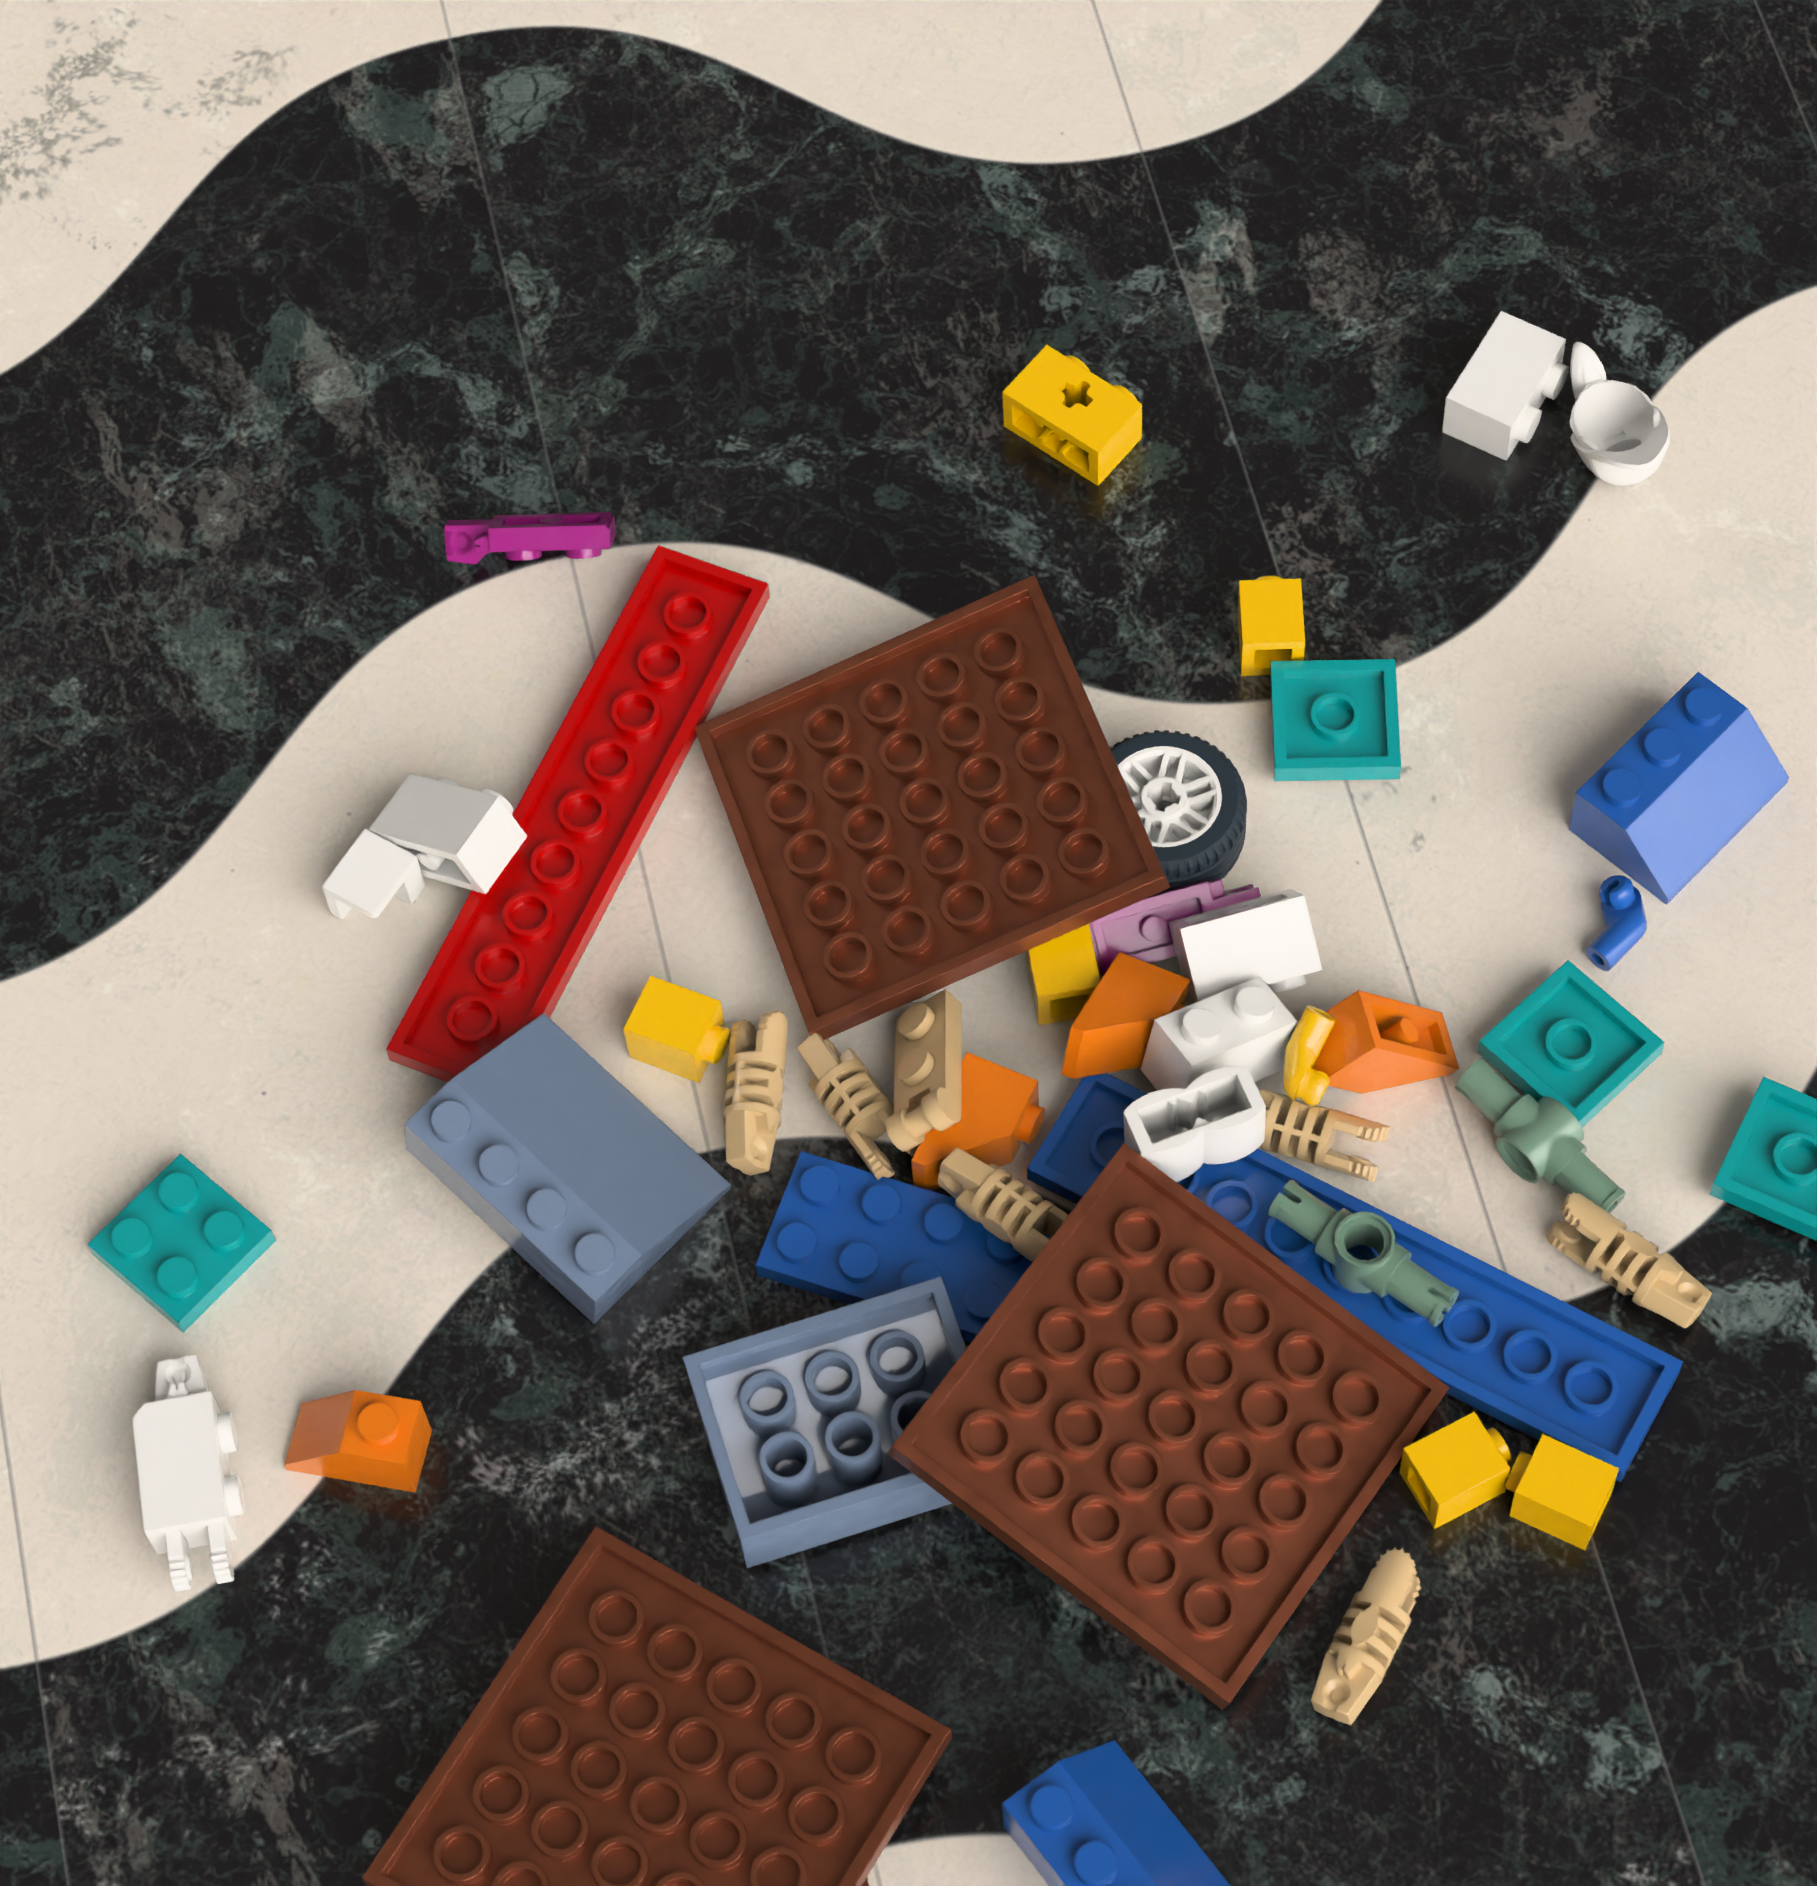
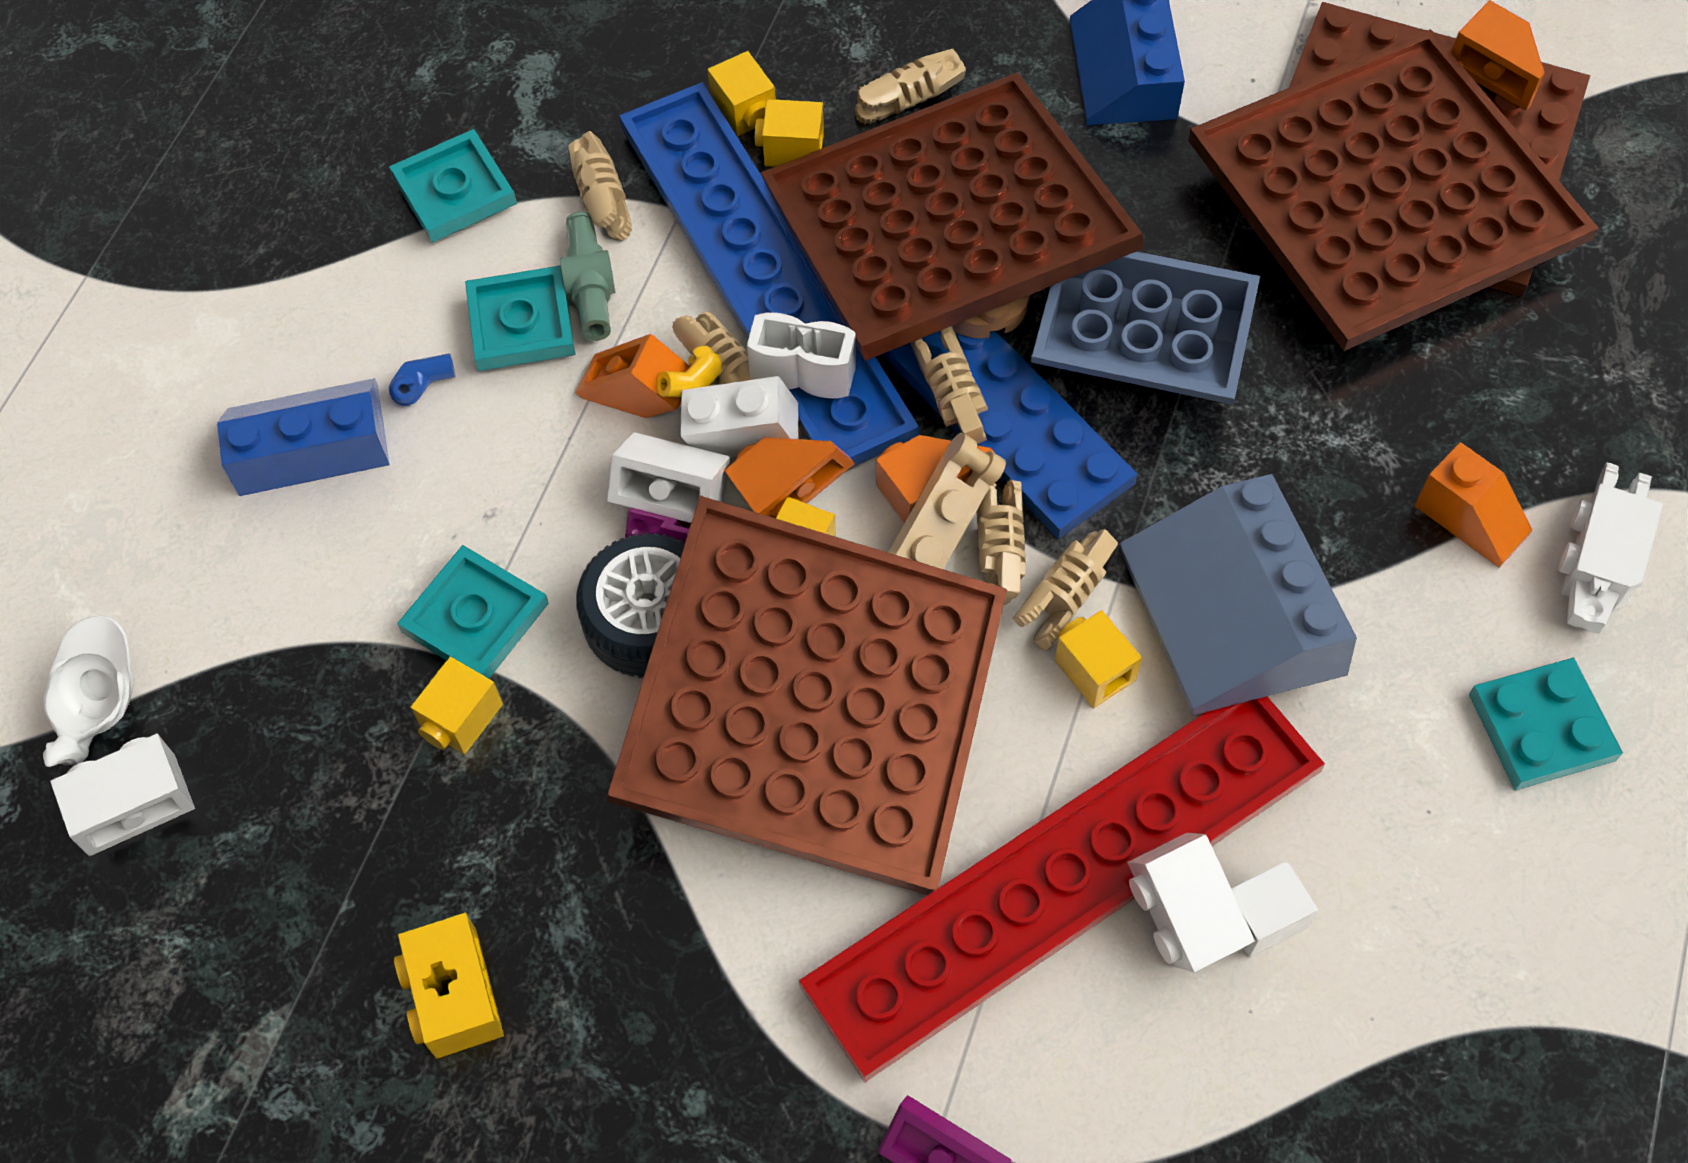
camera: 150 degrees left, 0 degrees up
(1386, 1274) = (755, 244): sand green pin -> none

